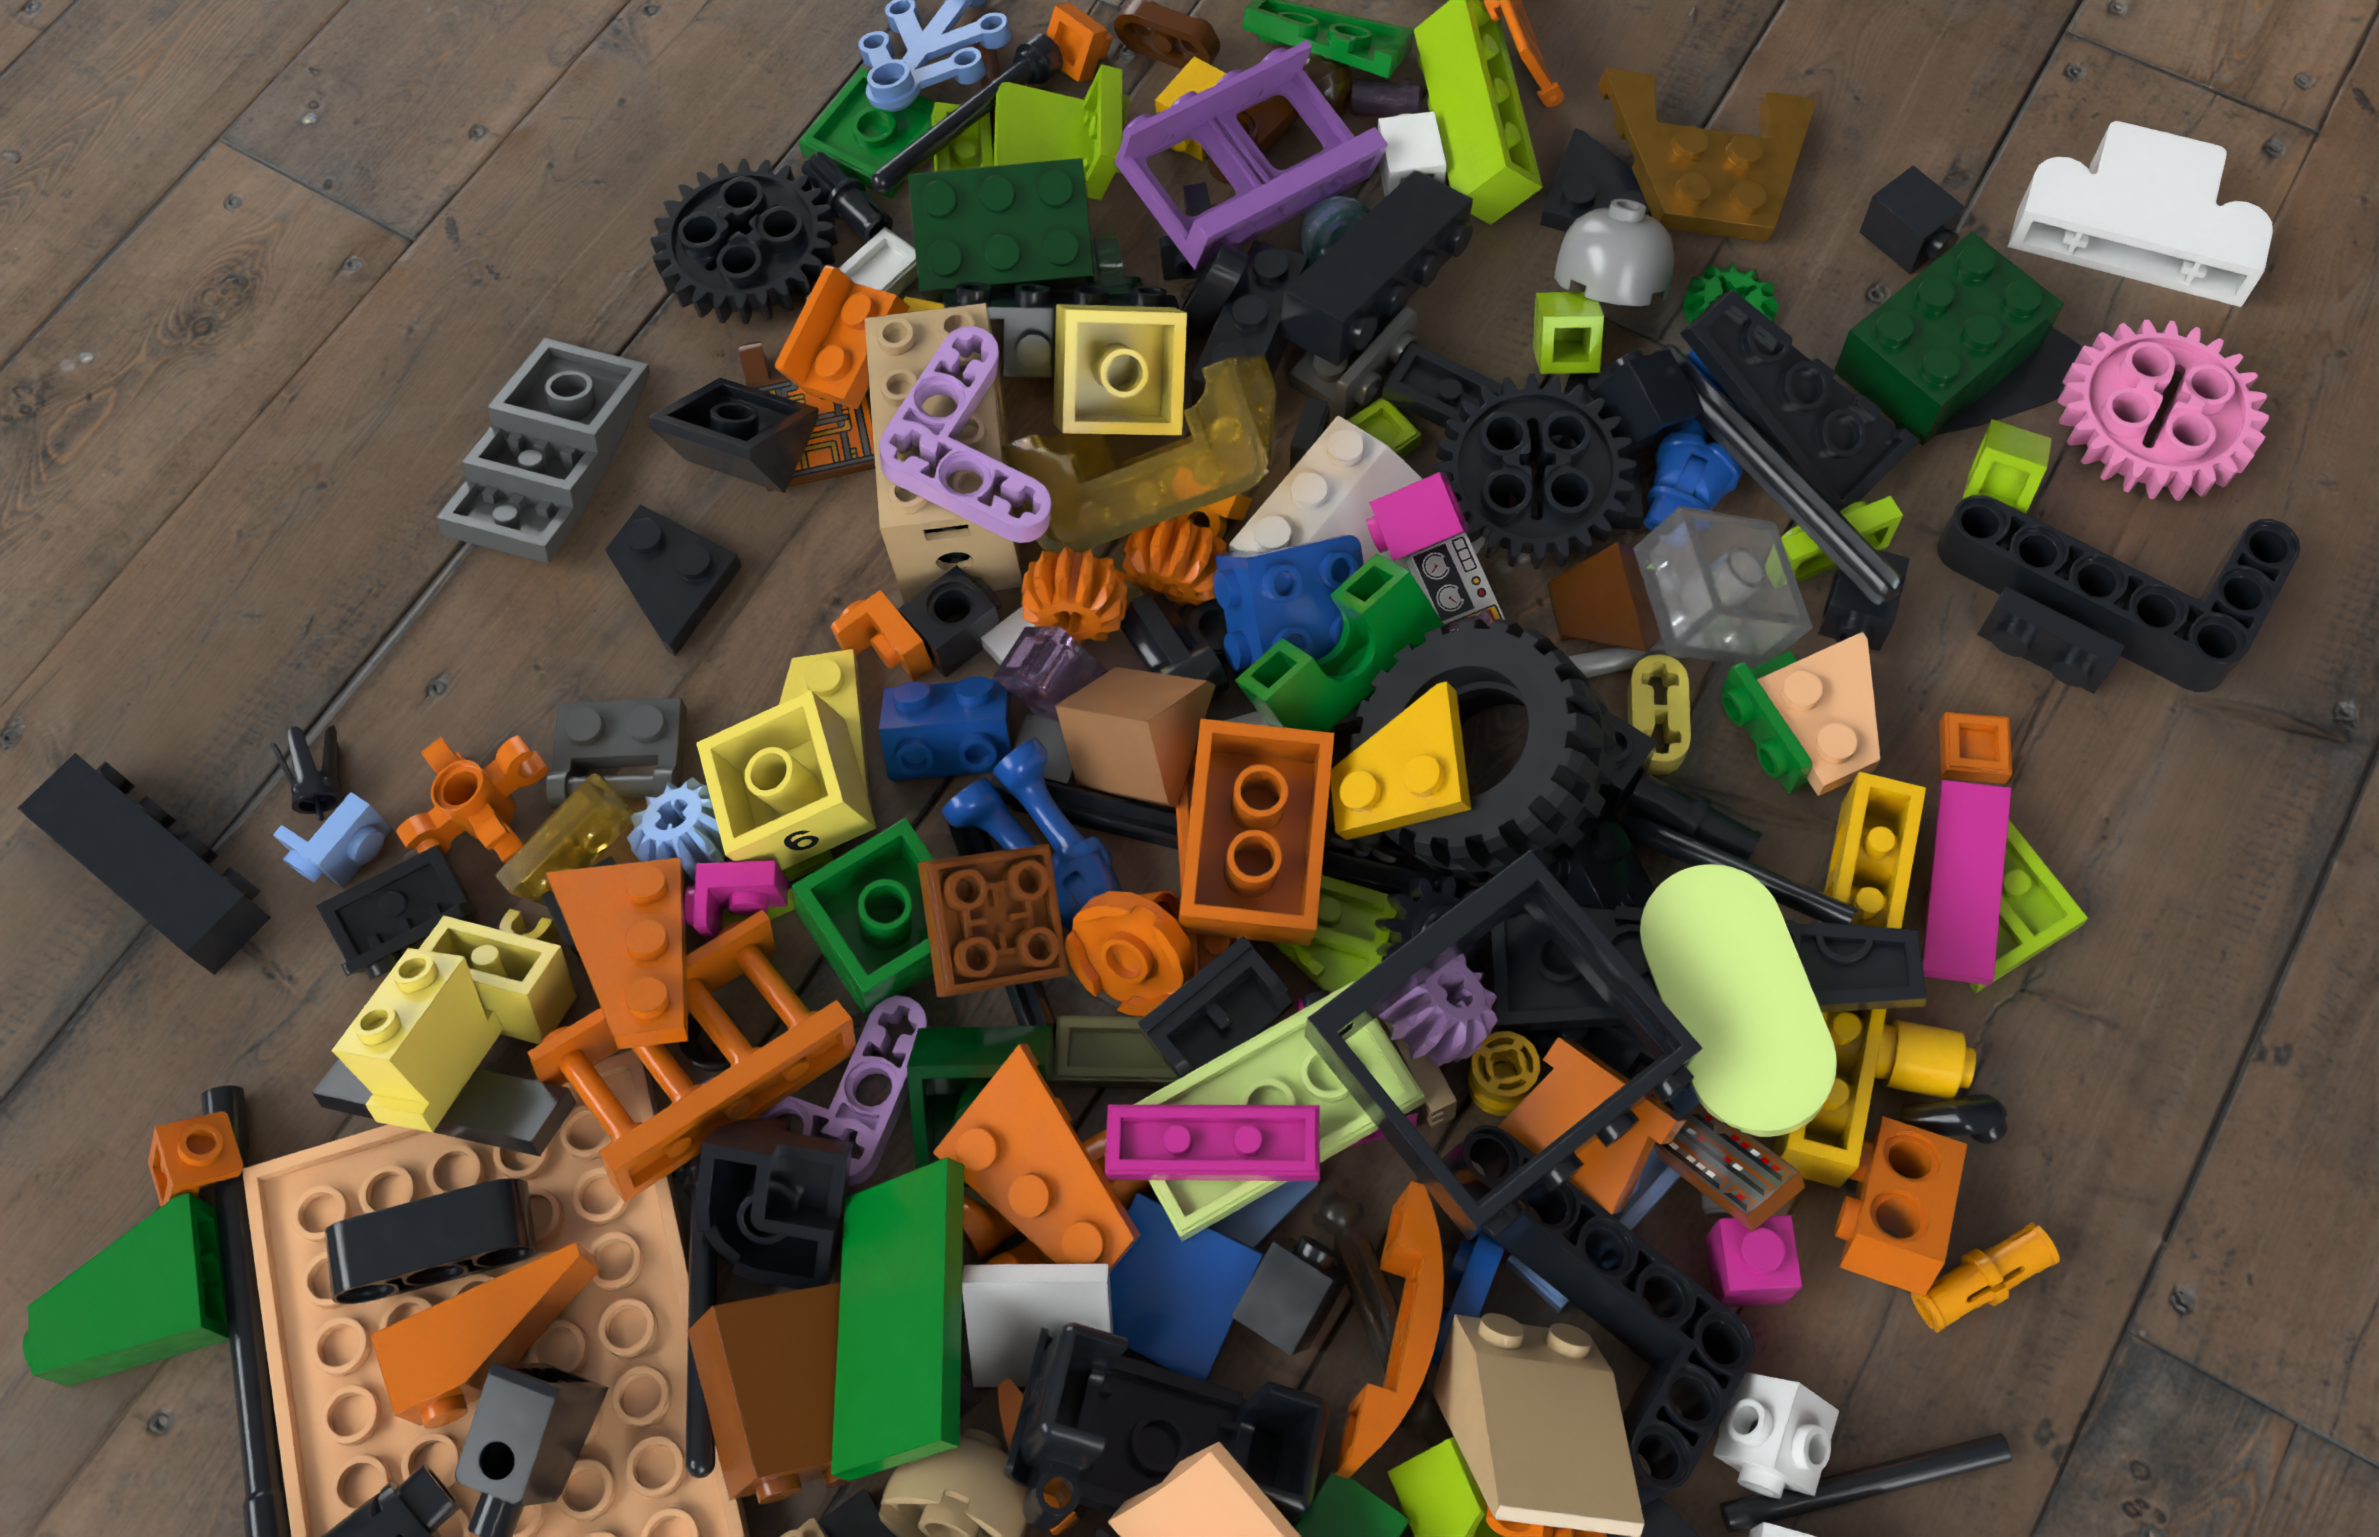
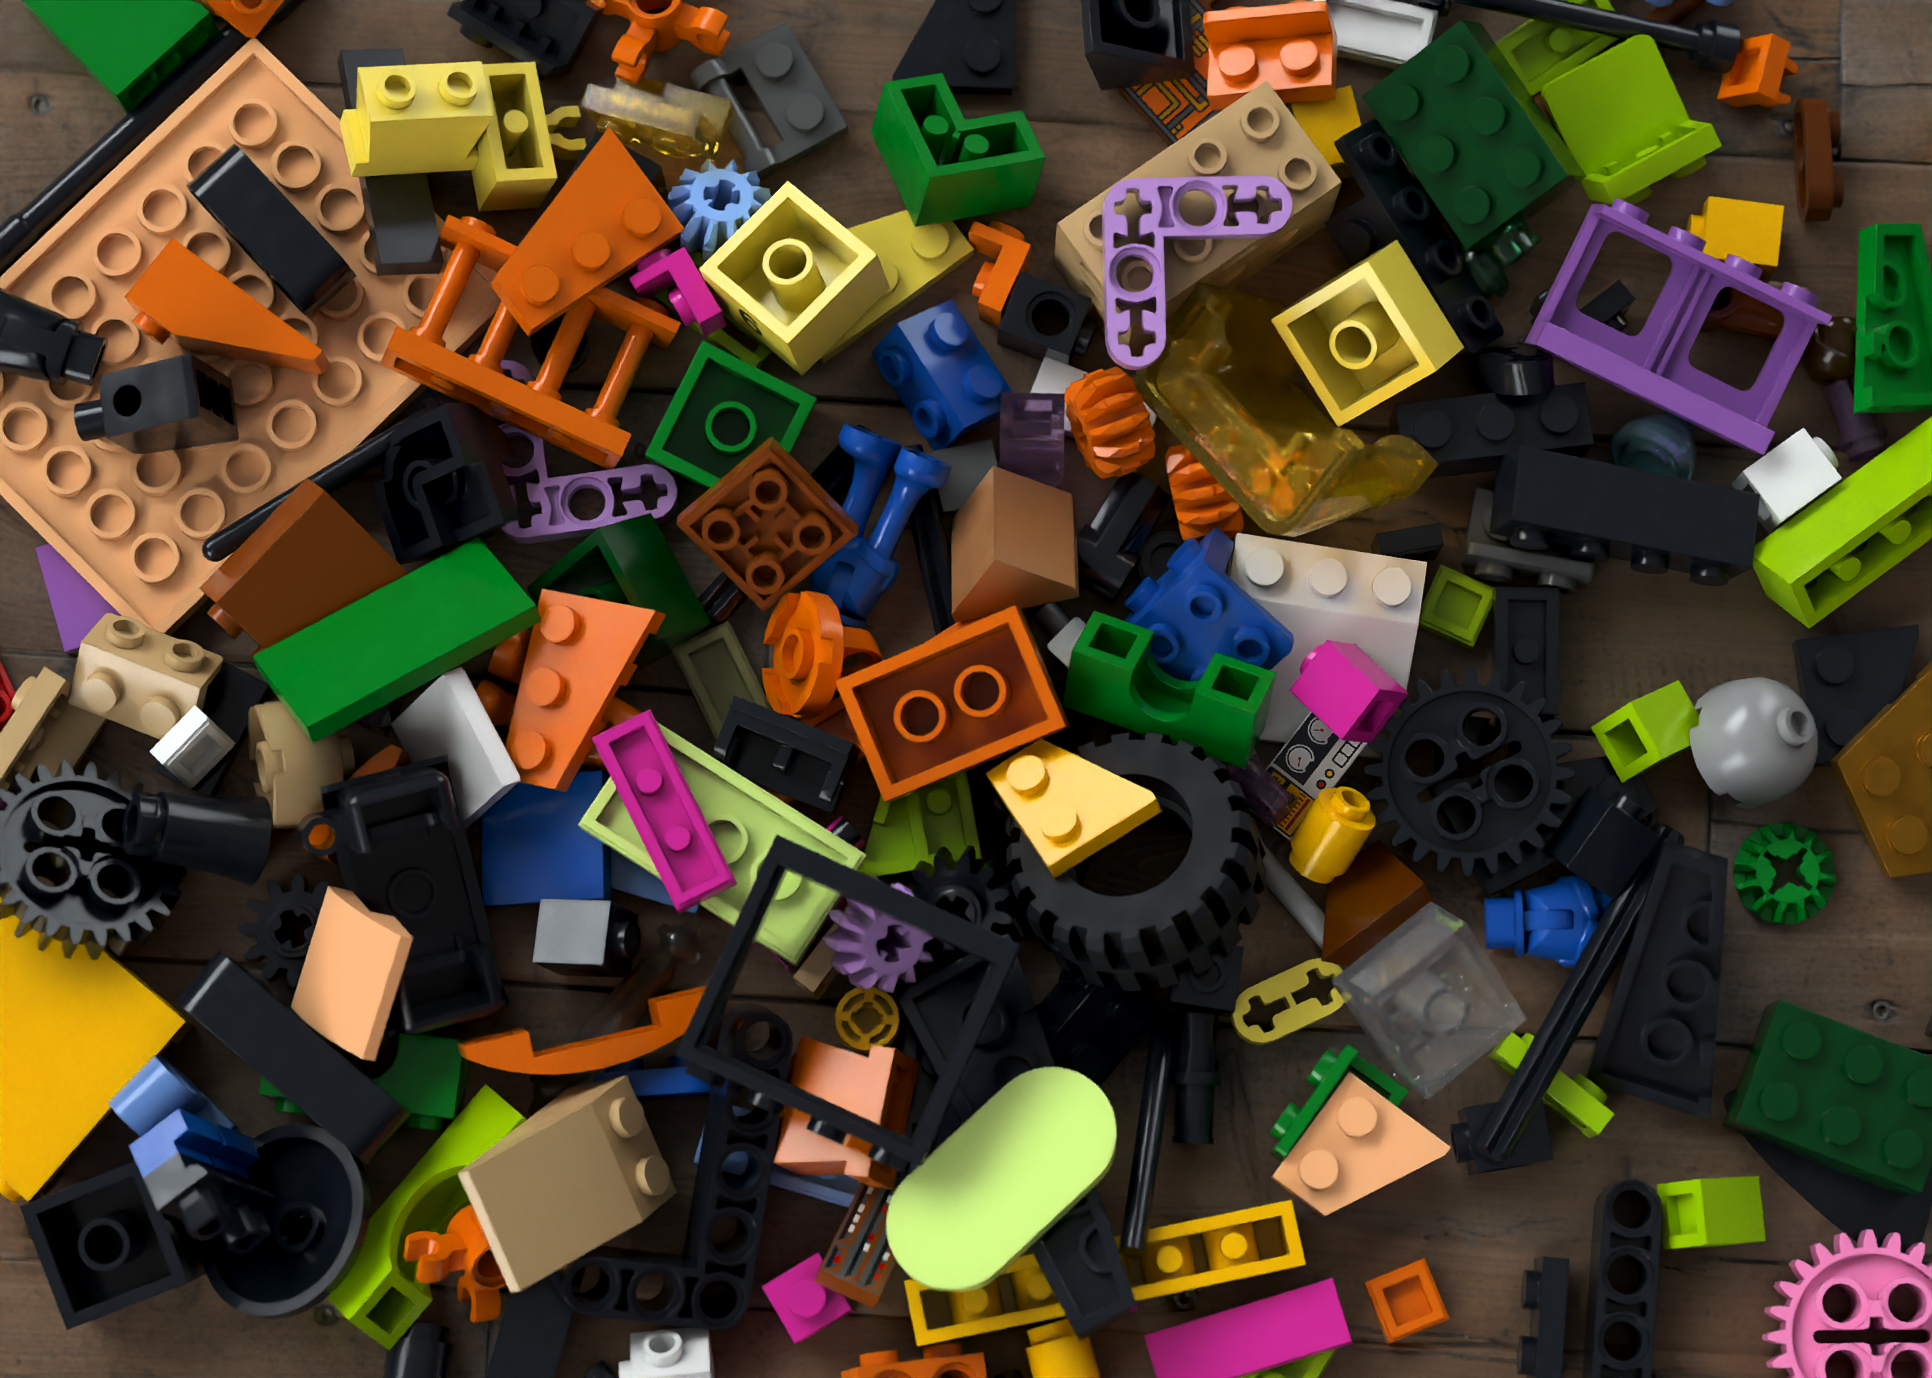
camera: 55 degrees right, 15 degrees up
(763, 622) = (953, 164): none -> green brick
(1531, 597) = (1331, 834): none -> yellow brick

